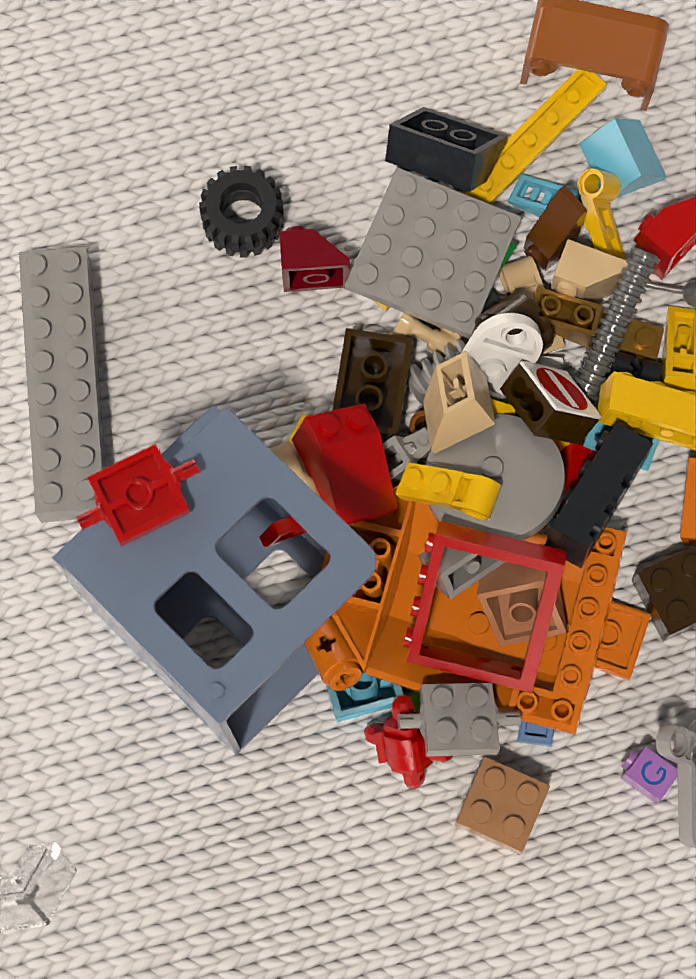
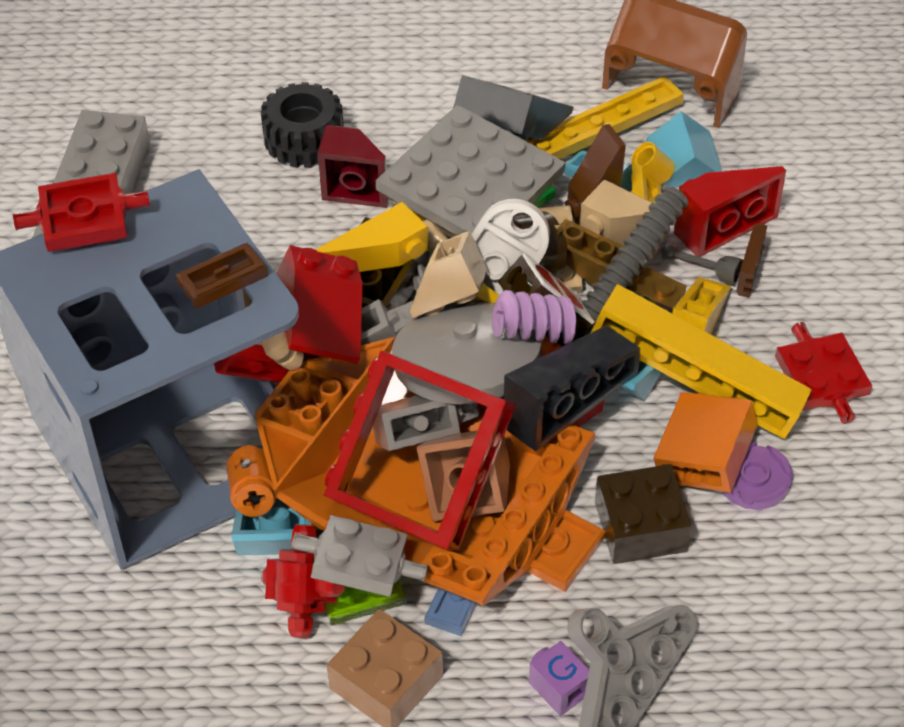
camera: 15 degrees right, 25 degrees down
(272, 560) = (225, 279): none -> reddish brown tile
(376, 365) = (383, 240): none -> yellow slope
(449, 489) = (432, 339): yellow plate -> none
(554, 444) = (535, 314): none -> lavender piece

